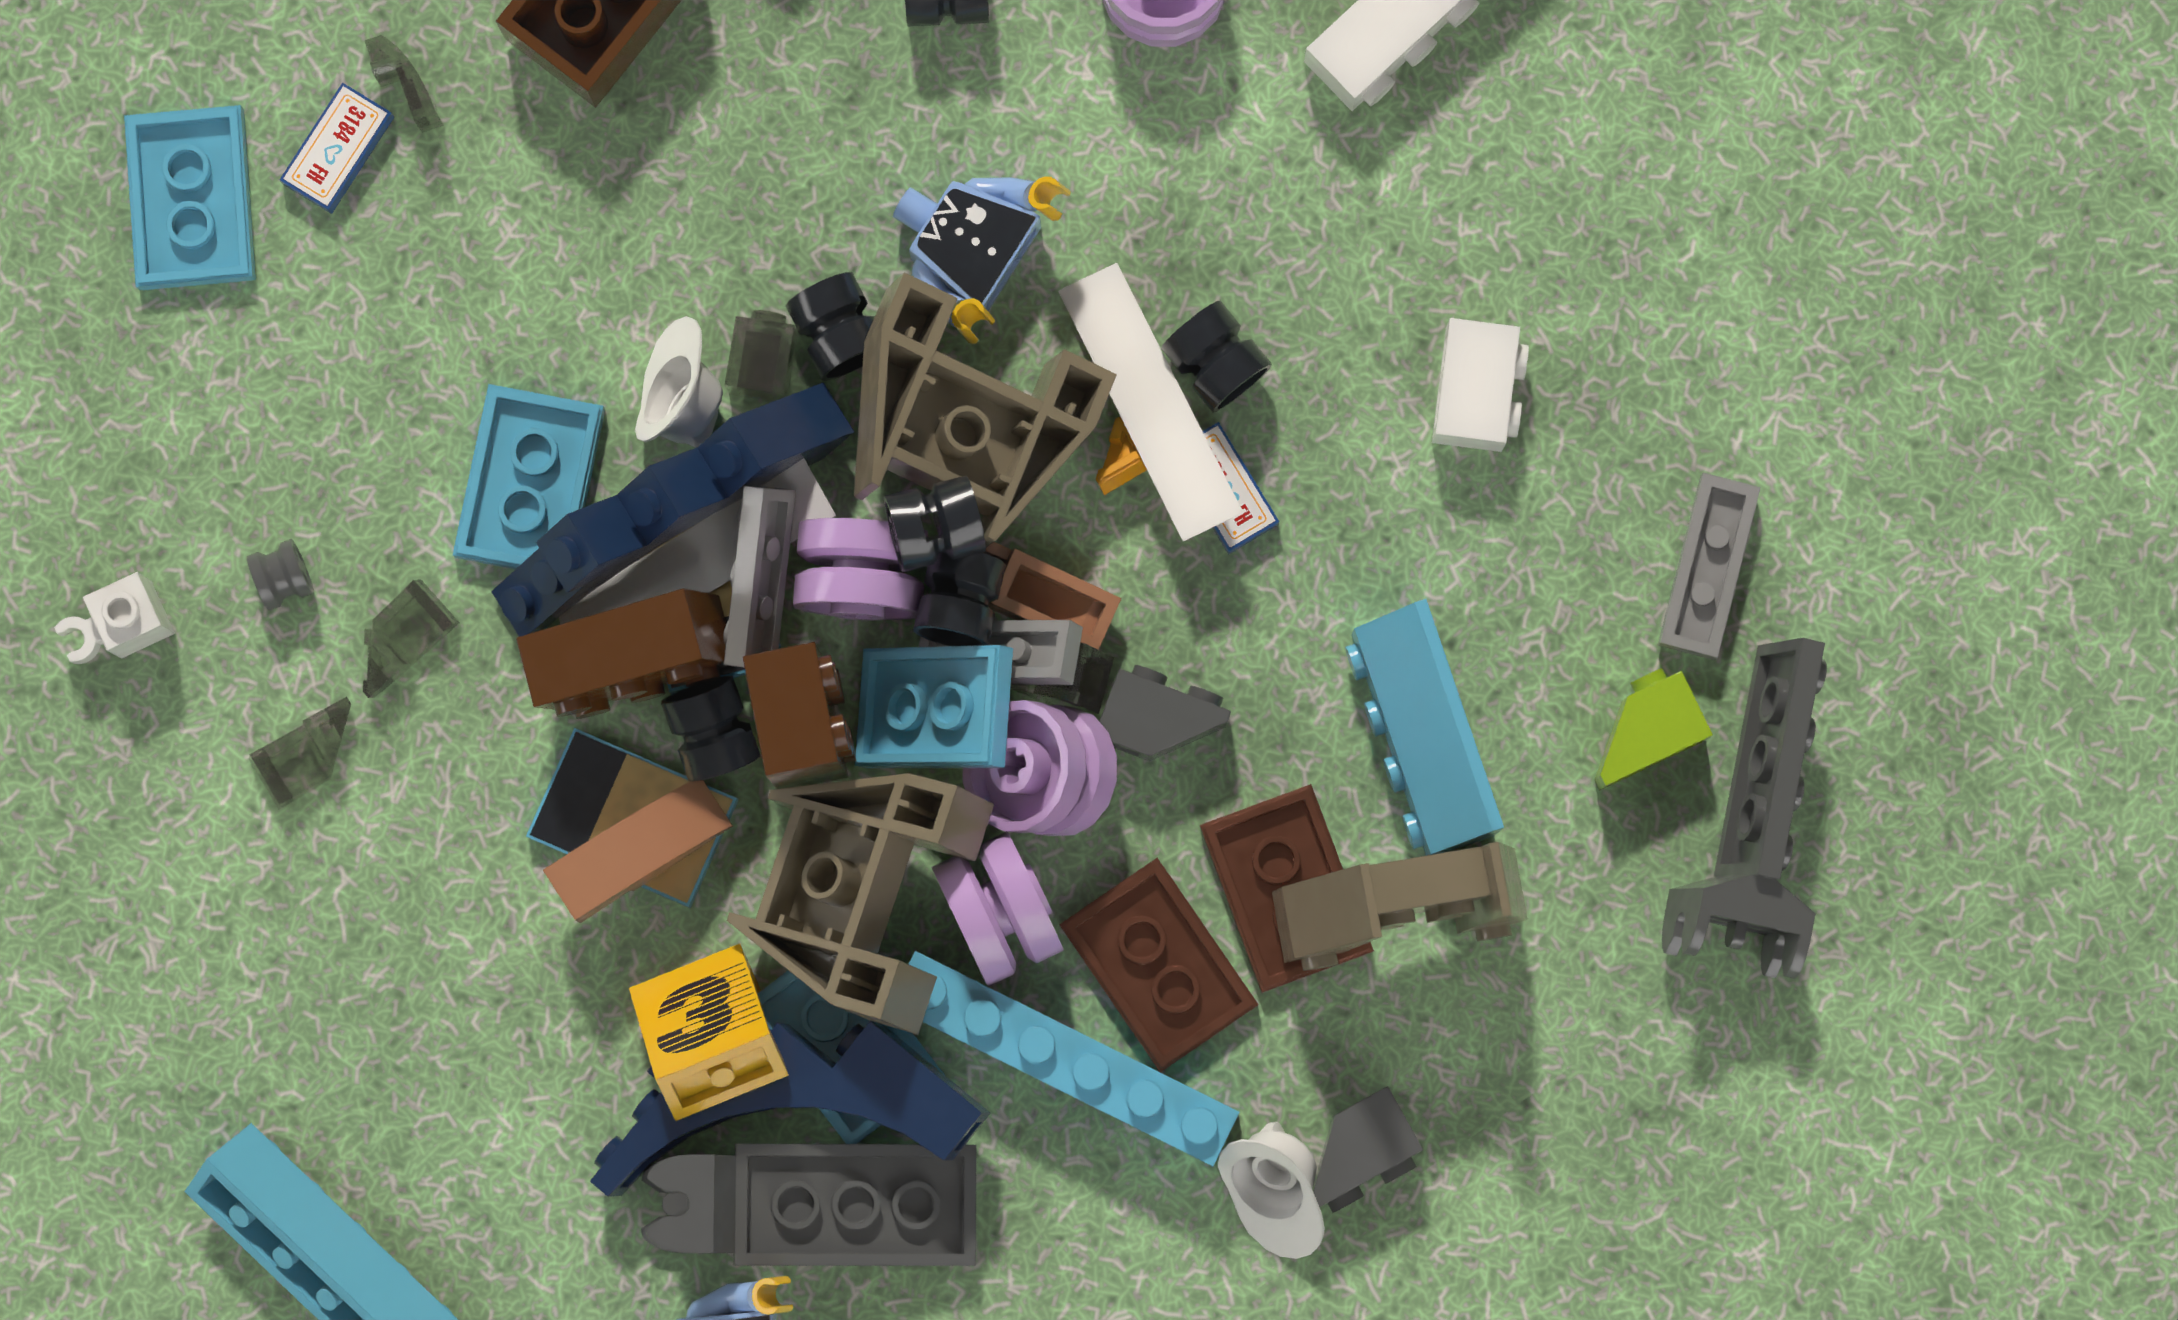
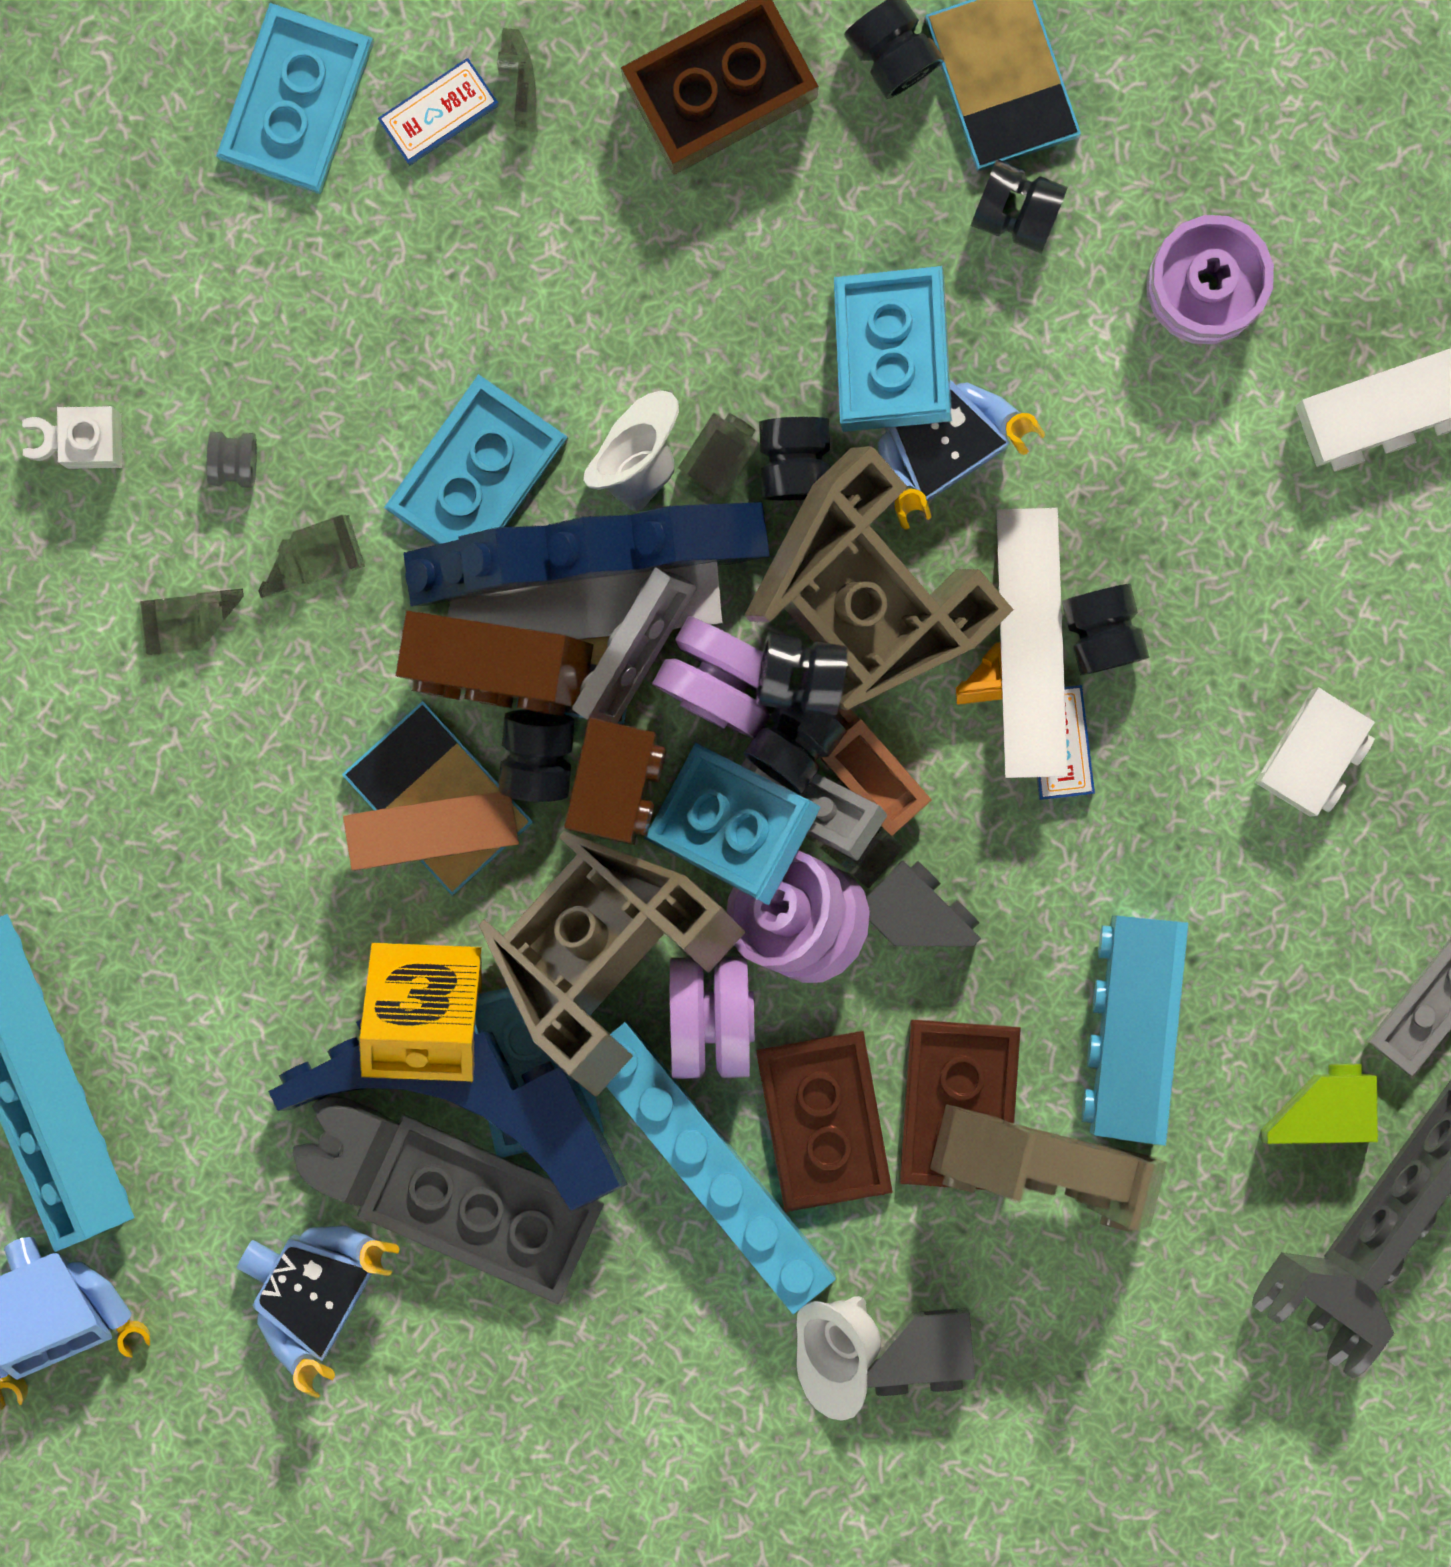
camera: 25 degrees right, 5 degrees up
(884, 177) = (892, 349): none -> medium azure tile

